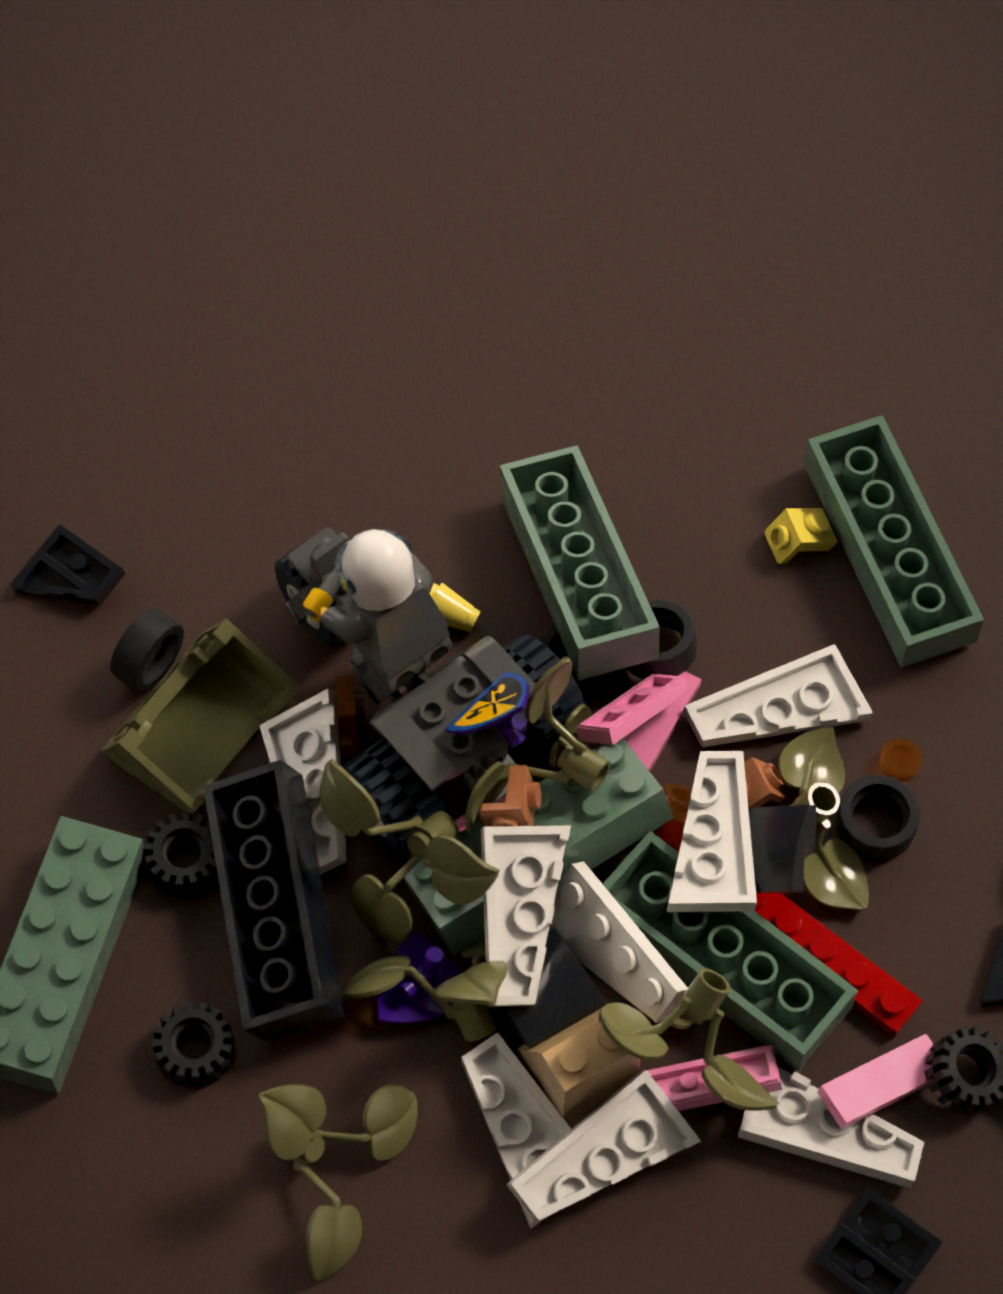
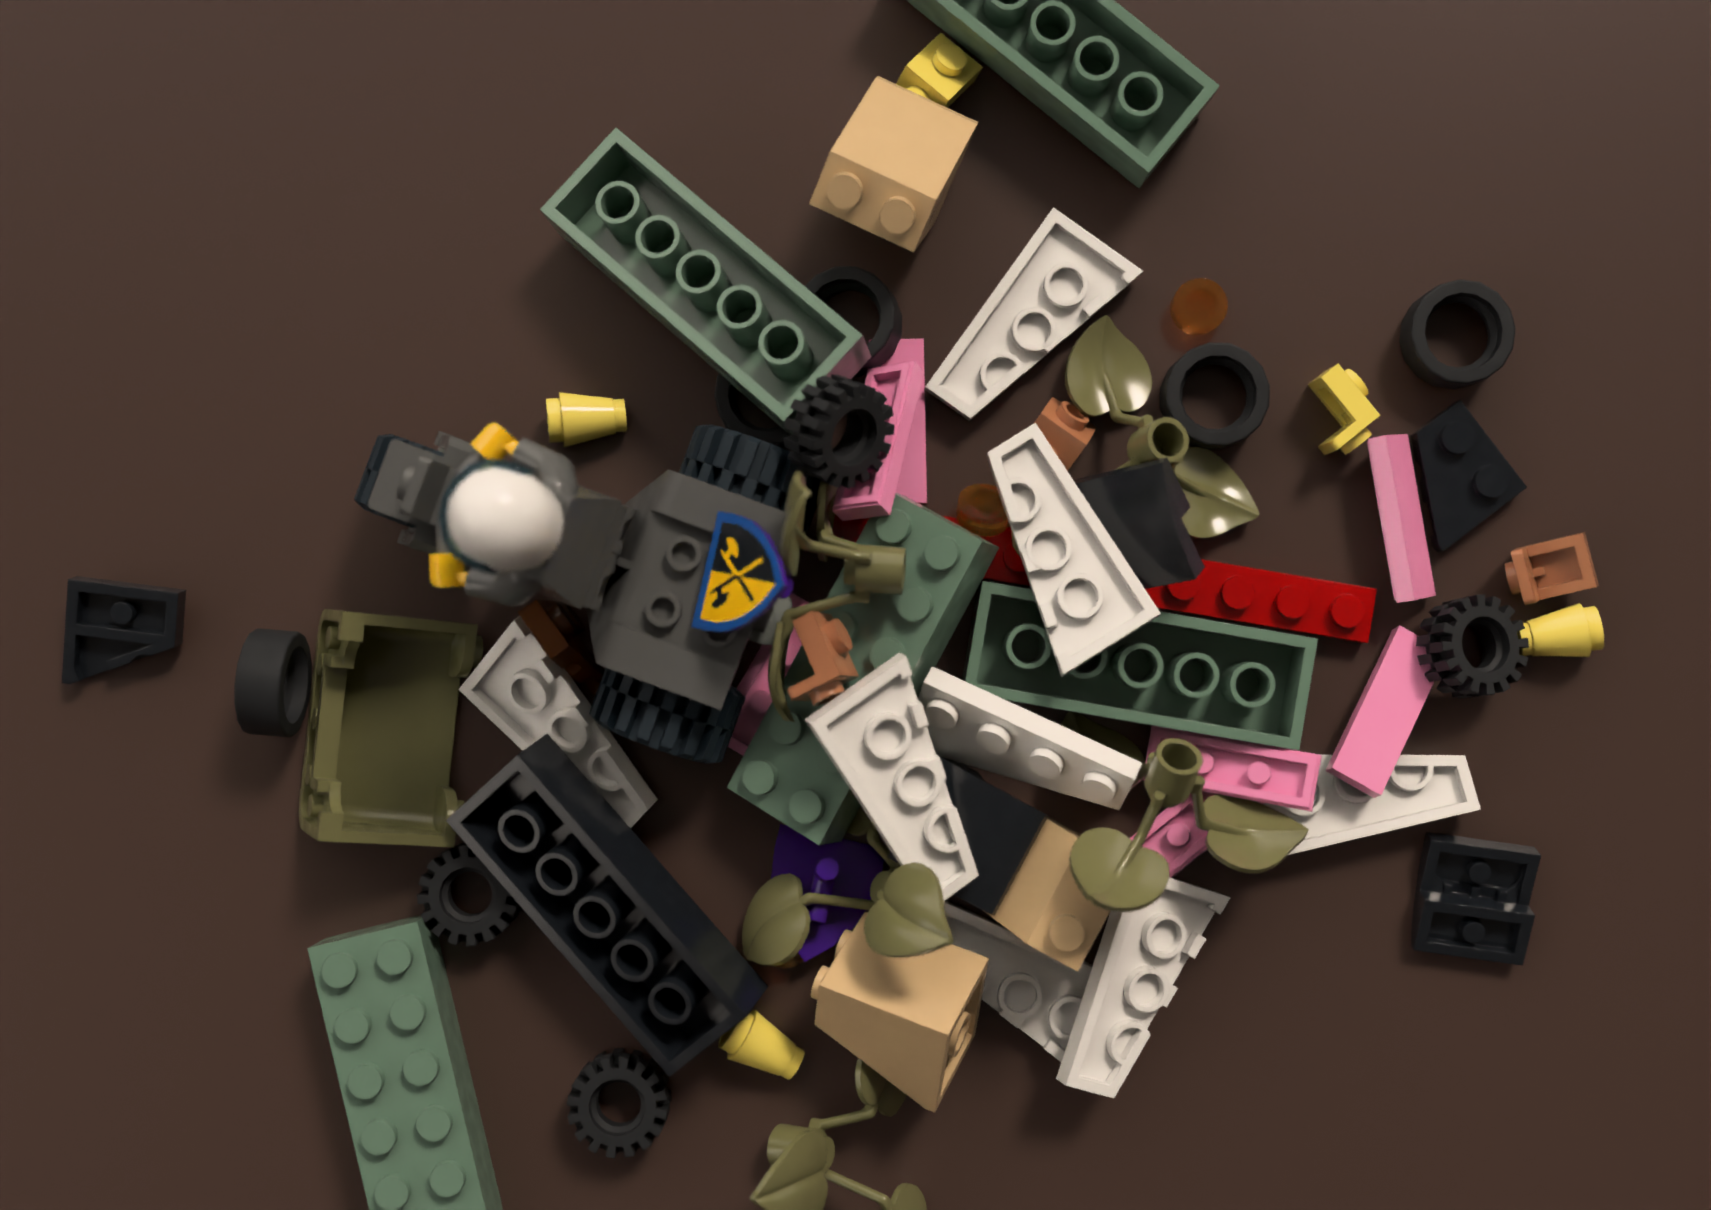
camera: 30 degrees left, 25 degrees up
(313, 1060) = (762, 1046): none -> light yellow cone
(432, 1076) = (902, 1014): none -> tan slope
(455, 872) = (746, 755): olive plant -> none
(629, 684) = (816, 423): none -> black tyre
(743, 556) = (894, 164): none -> tan slope
(758, 1054) = (1250, 769): none -> bright pink tile
(965, 962) = (1401, 517): none -> bright pink tile
(968, 868) = (1345, 399): none -> light yellow bracket

